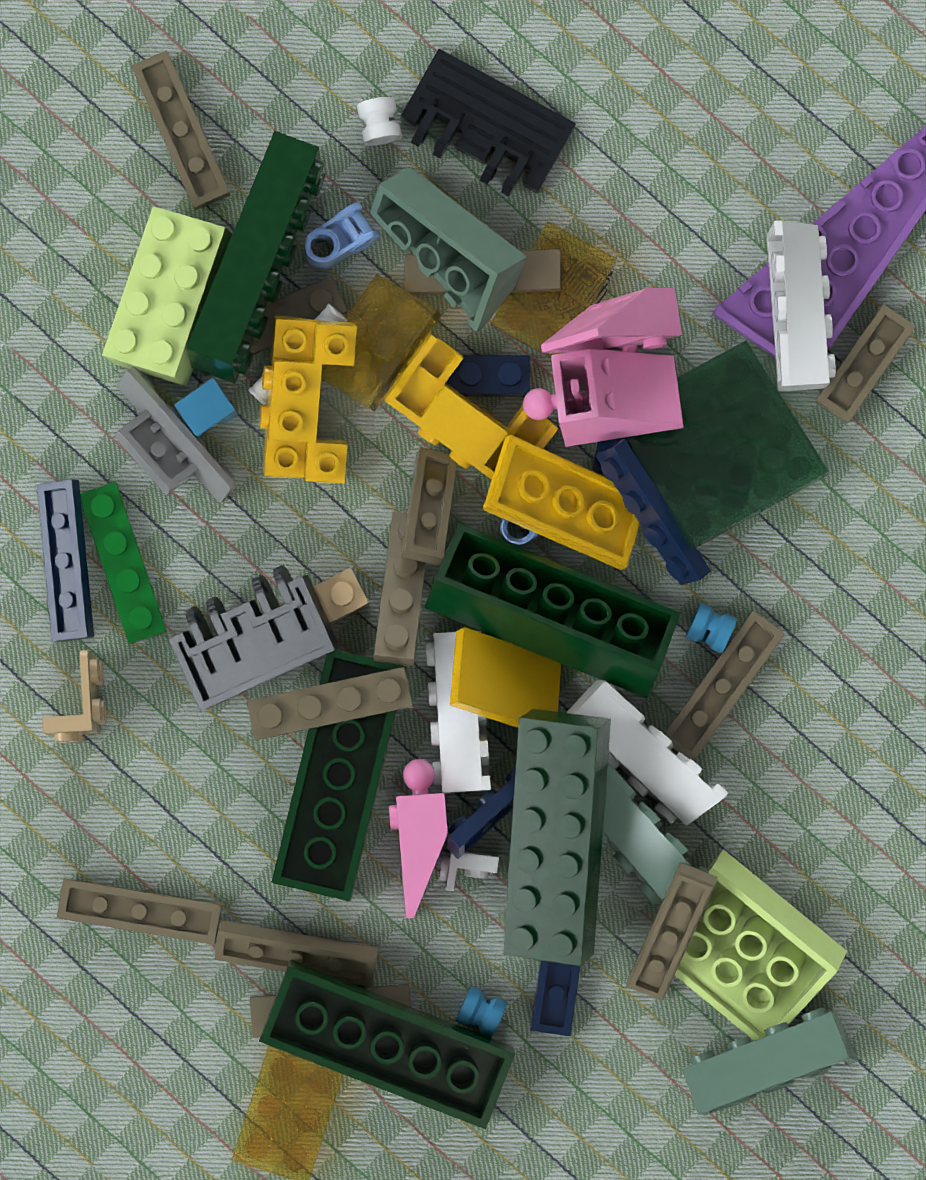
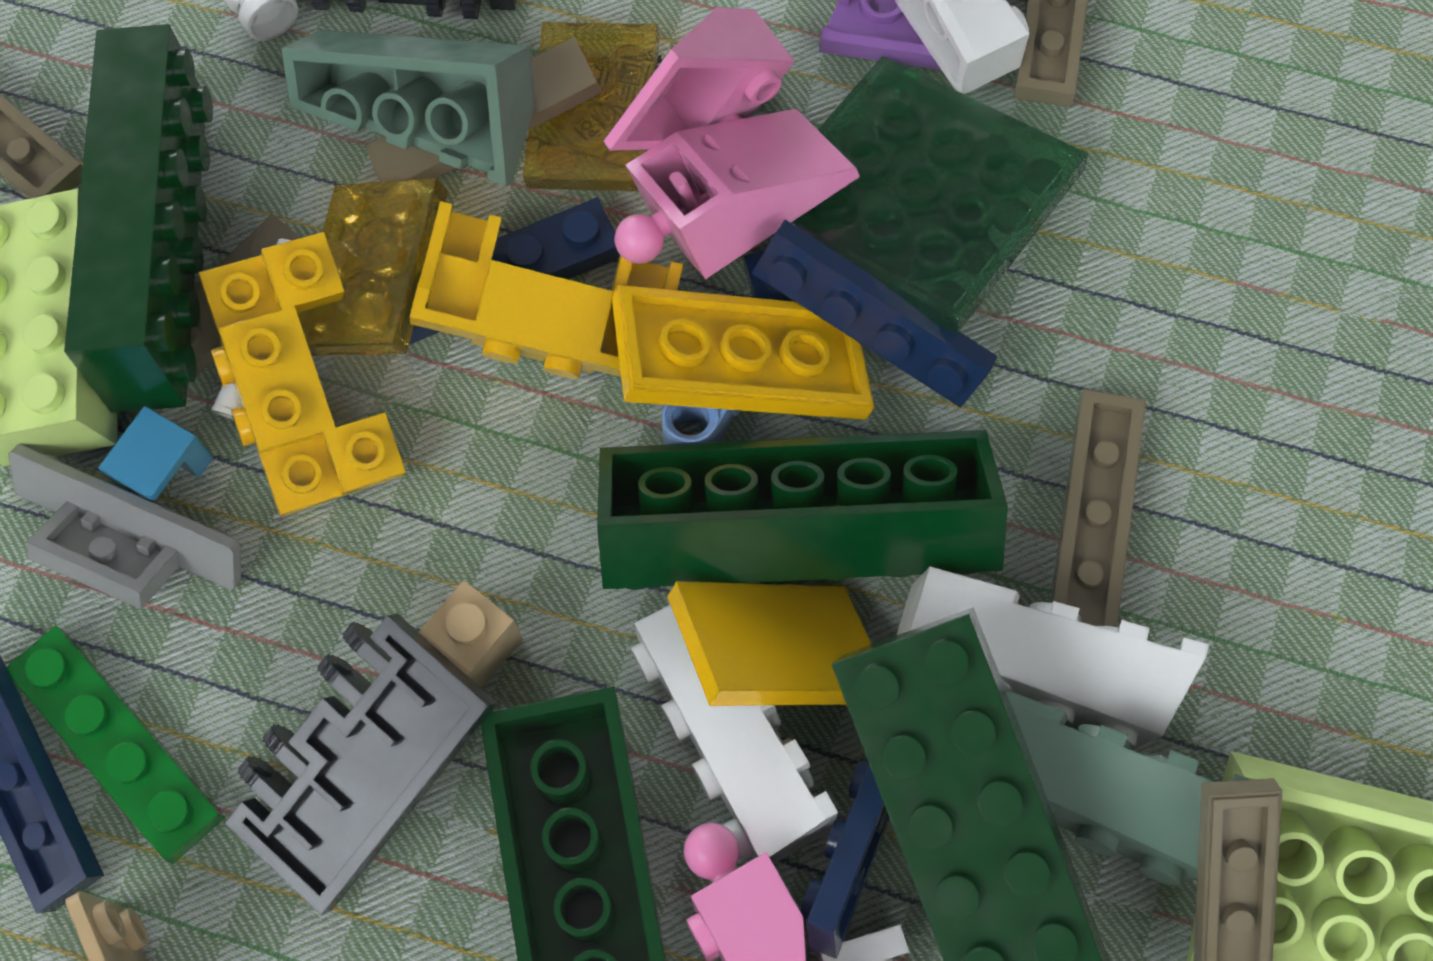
camera: 20 degrees left, 15 degrees down
(329, 703) = (515, 799): dark tan plate -> none
(342, 237) = (268, 154): light blue piece -> none
(399, 601) = (559, 585): dark tan plate -> none
(429, 507) = (546, 449): dark tan plate -> none
(711, 628) = (1037, 440): dark azure wheel -> none

